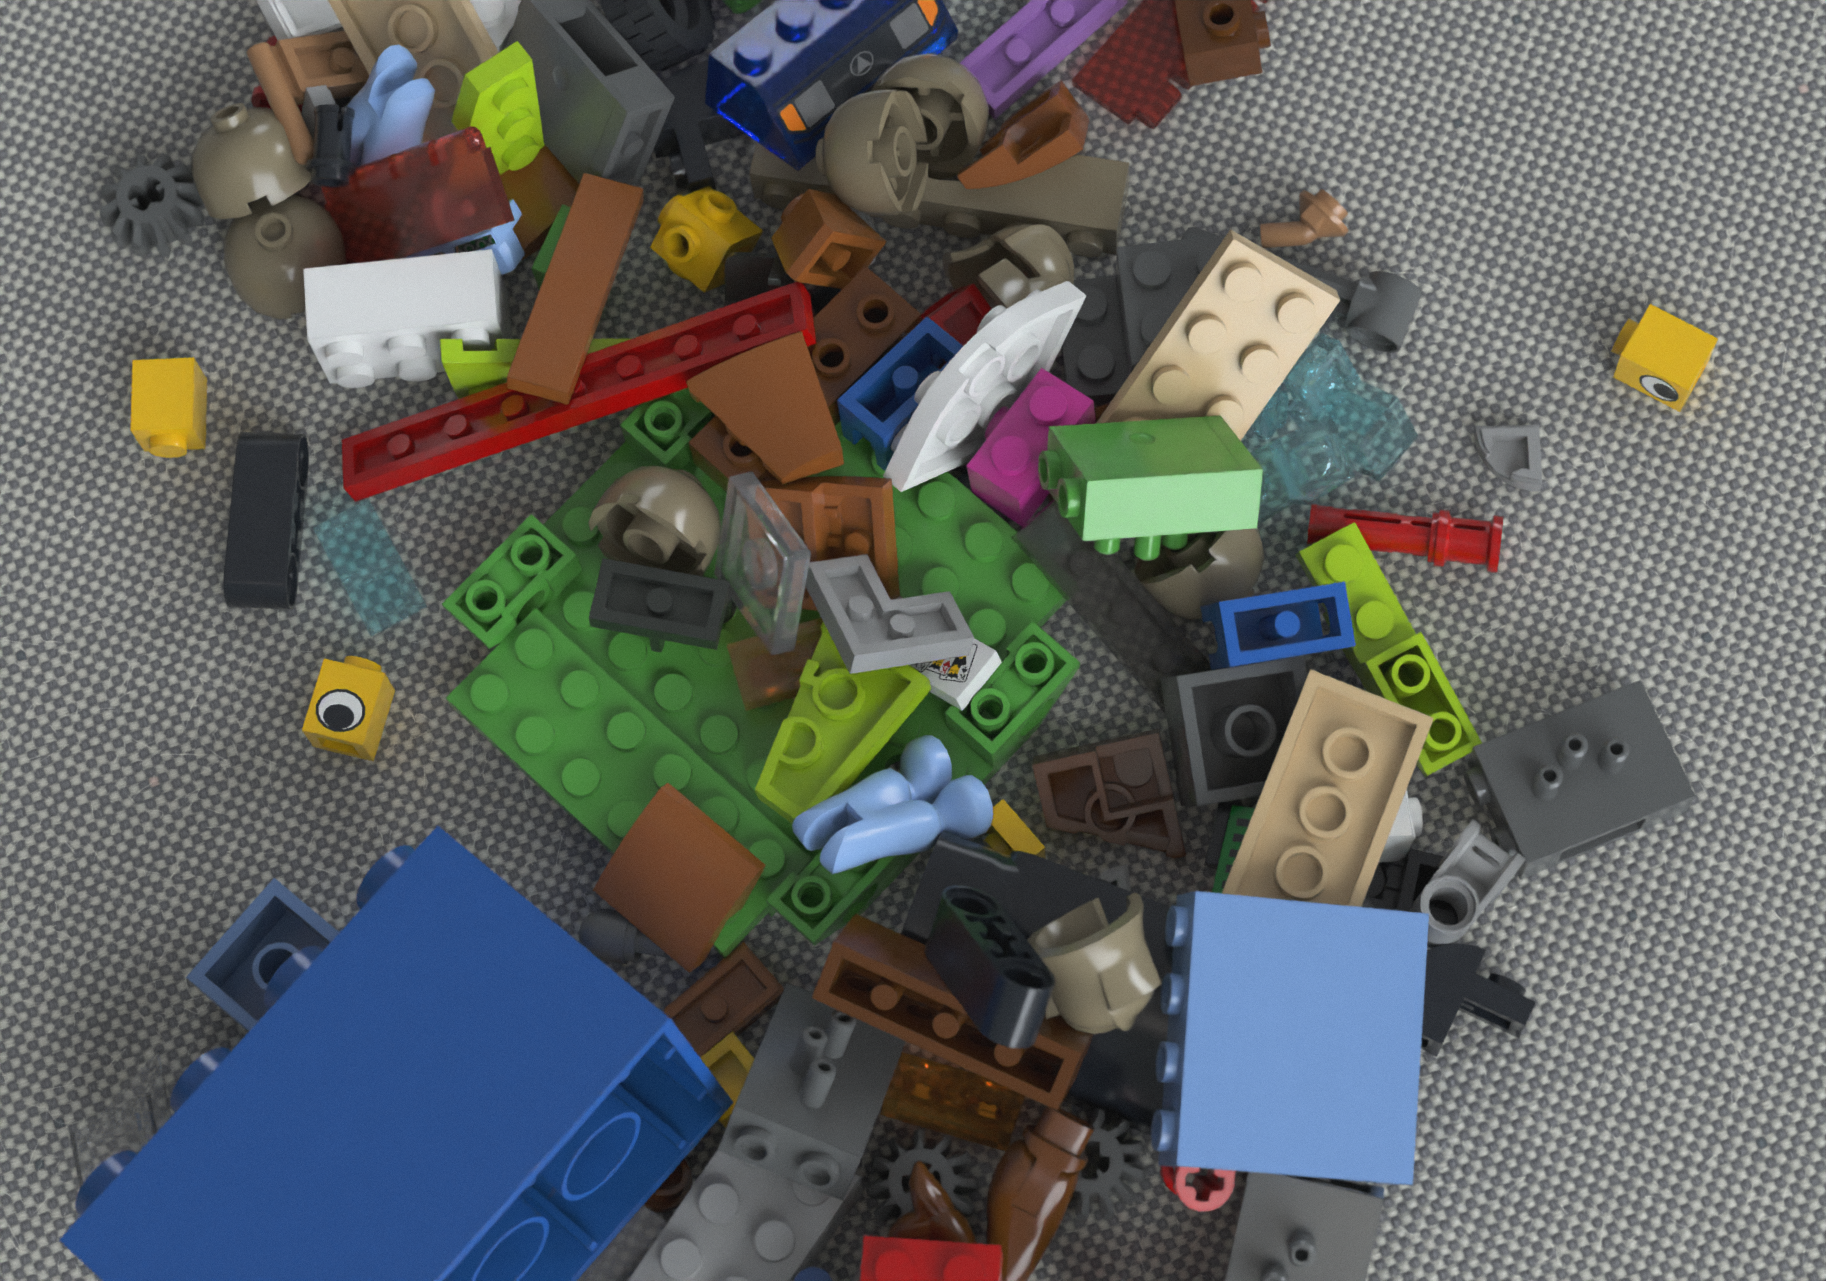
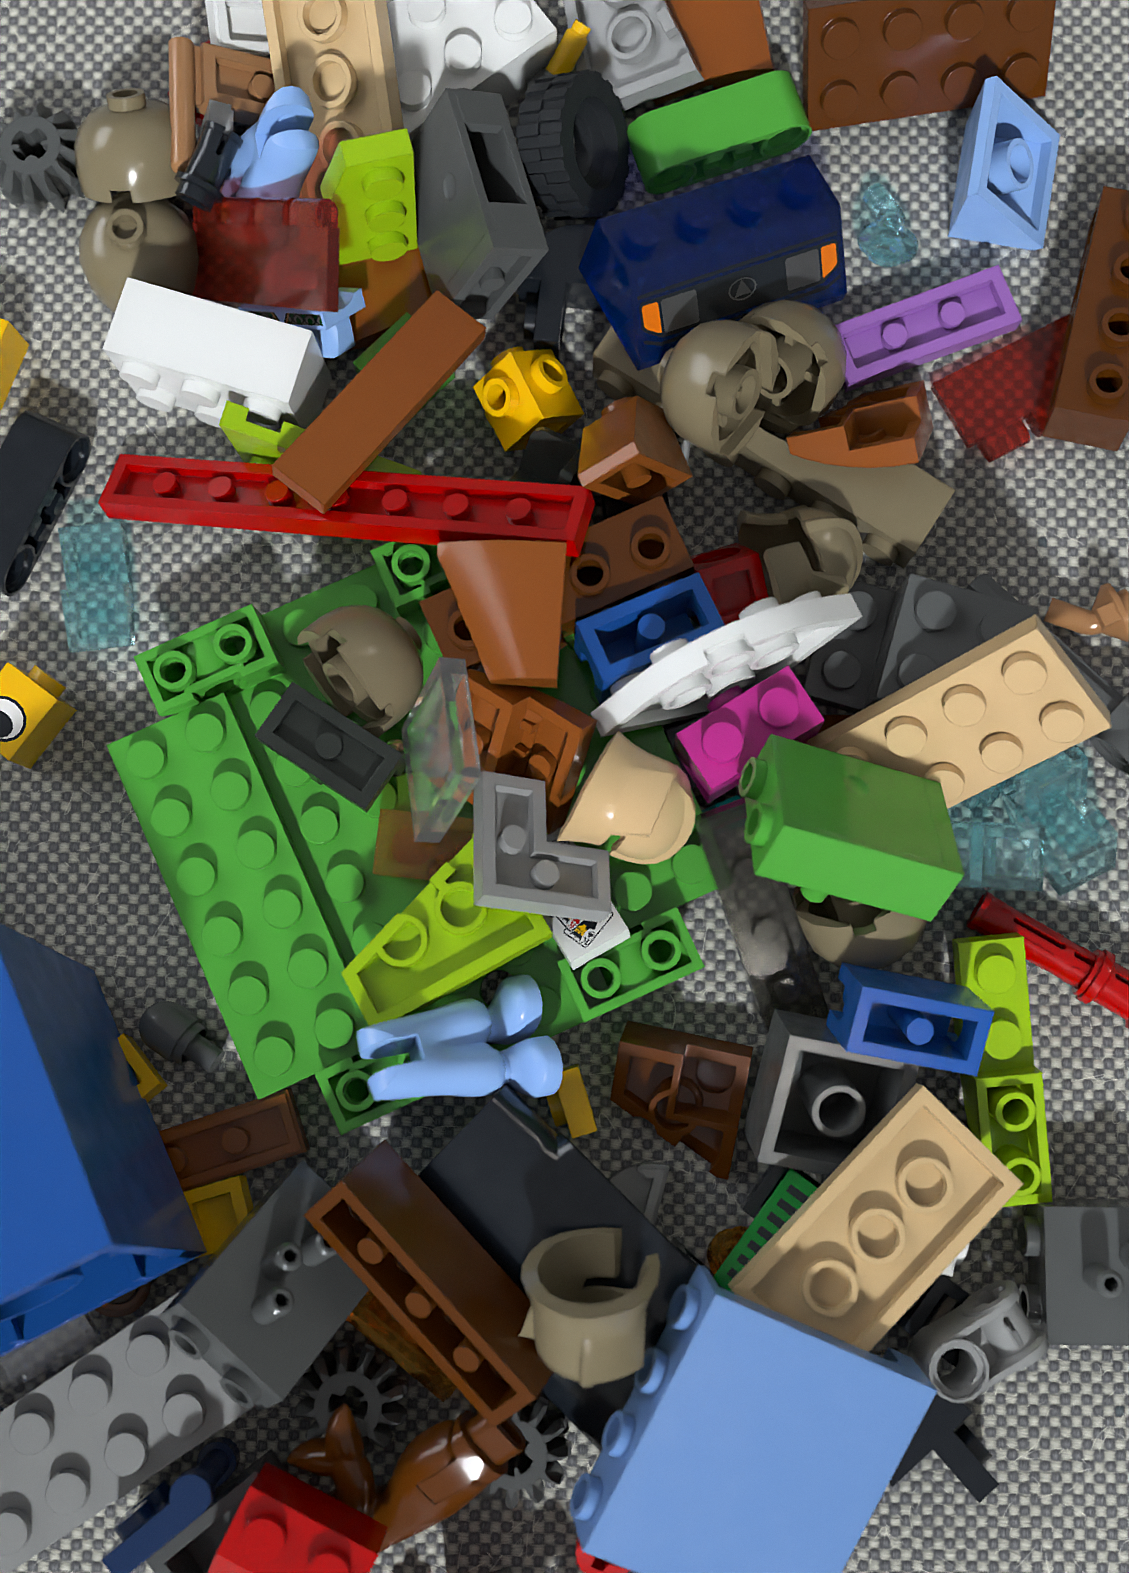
camera: 20 degrees right, 10 degrees up
(679, 877) = (242, 1017): dark orange slope -> none
(950, 531) = (636, 799): none -> tan helmet
(989, 966) = (482, 1277): black beam -> none

